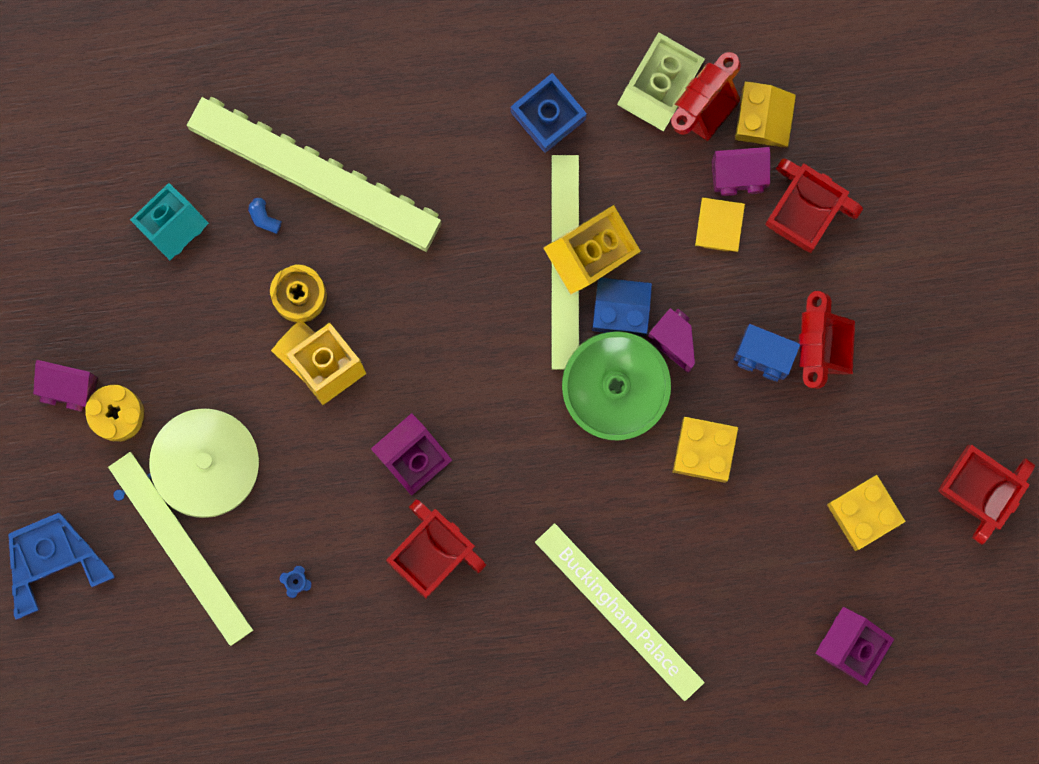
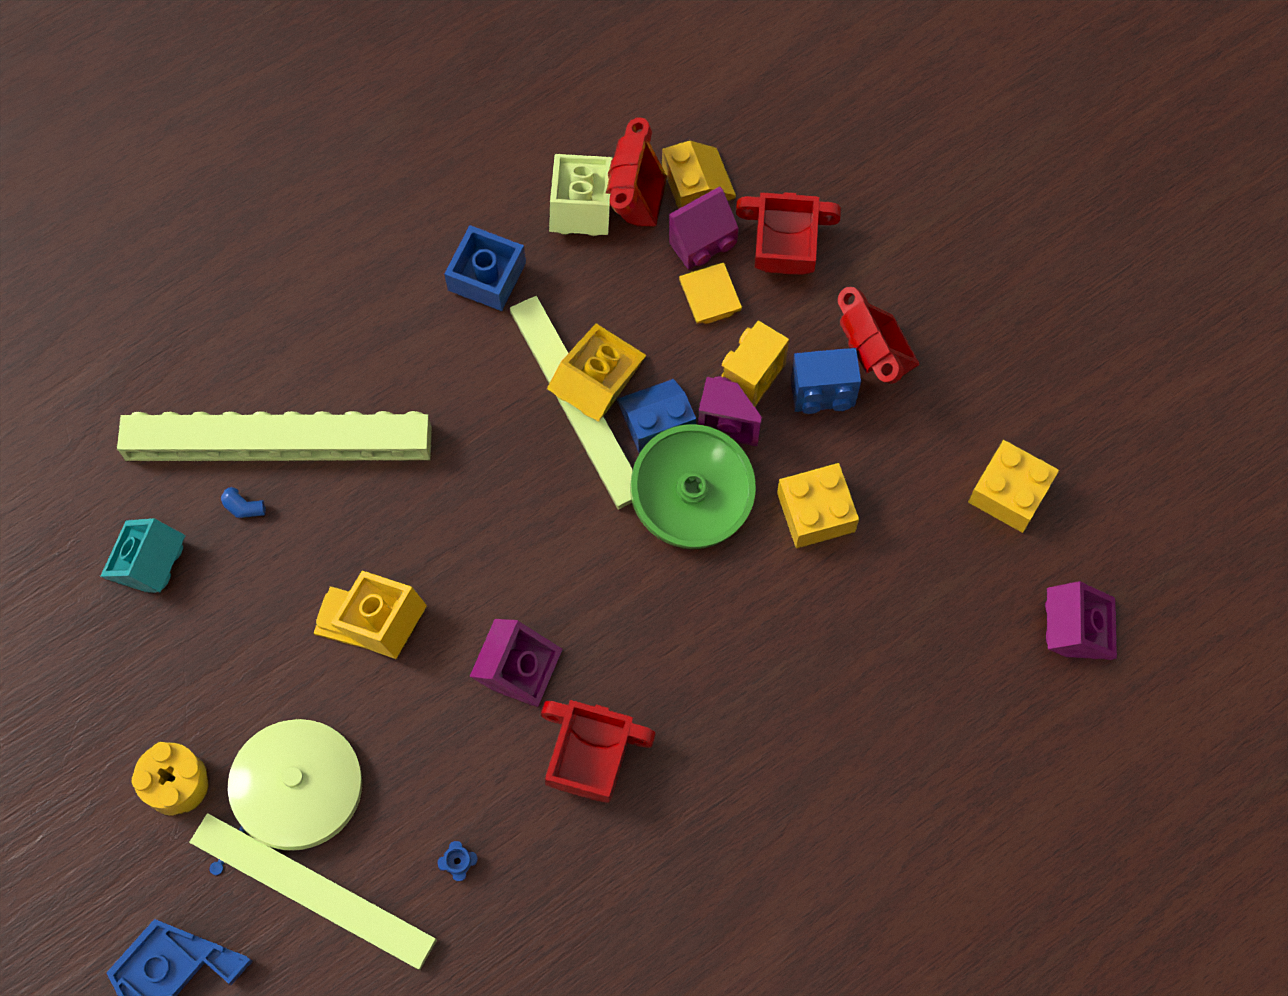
camera: 25 degrees left, 15 degrees down
(63, 384) = (97, 774): magenta slope -> none
(292, 279) = (298, 560): yellow brick -> none
(619, 612) = (822, 715): yellowish green tile -> none
(717, 310) = (756, 360): none -> yellow brick
(986, 489) = (1116, 403): red piece -> none

